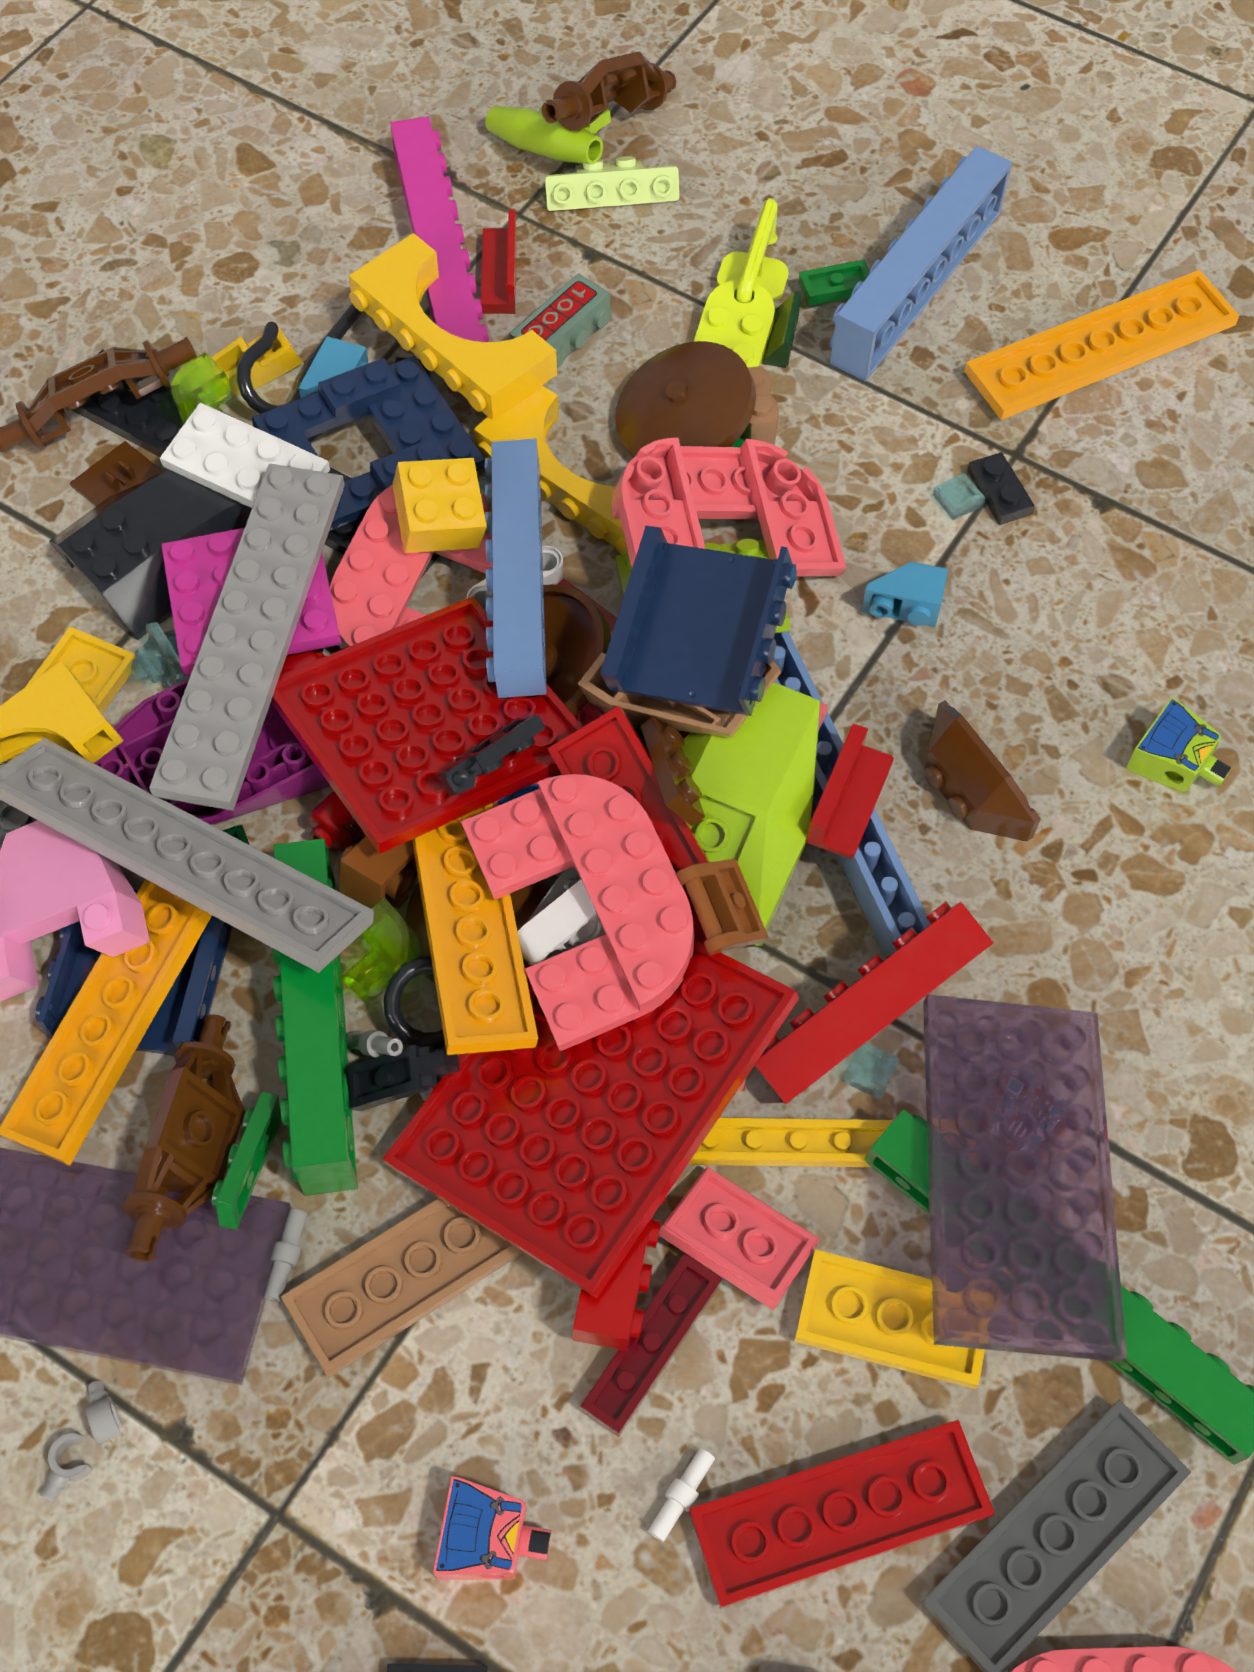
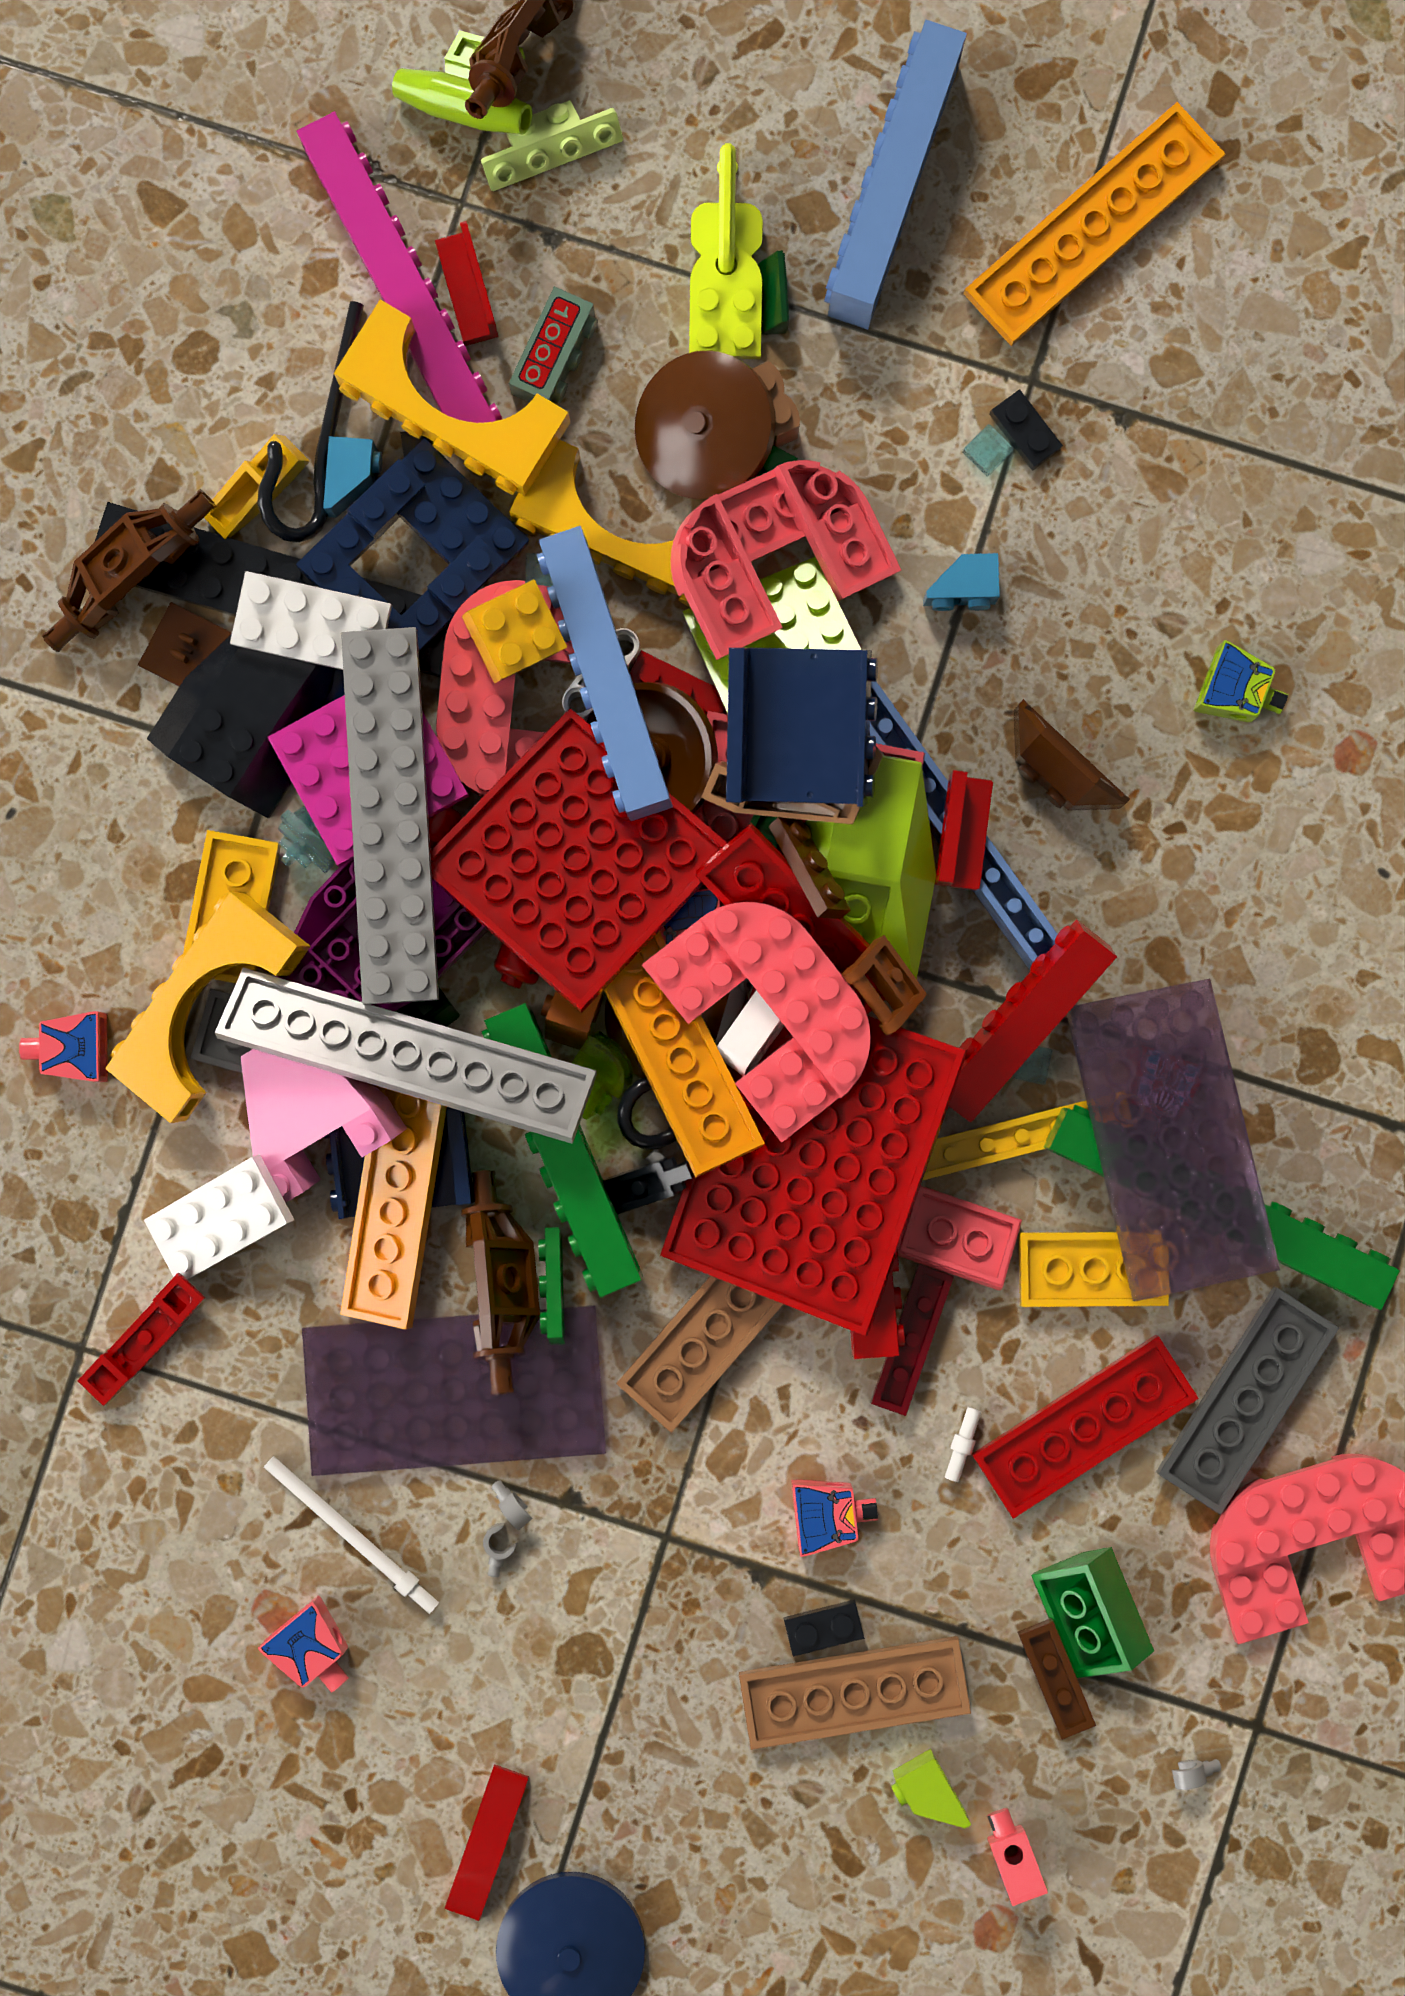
camera: 15 degrees left, 25 degrees up
(200, 382) = (228, 539): clear neon green brick -> none
(285, 1255) = (606, 1347): light grey bar -> none
(374, 1043) = (621, 1160): light grey bar -> none
(489, 753) = (648, 892): black hinge -> none
(832, 282) = (812, 215): green plate -> none

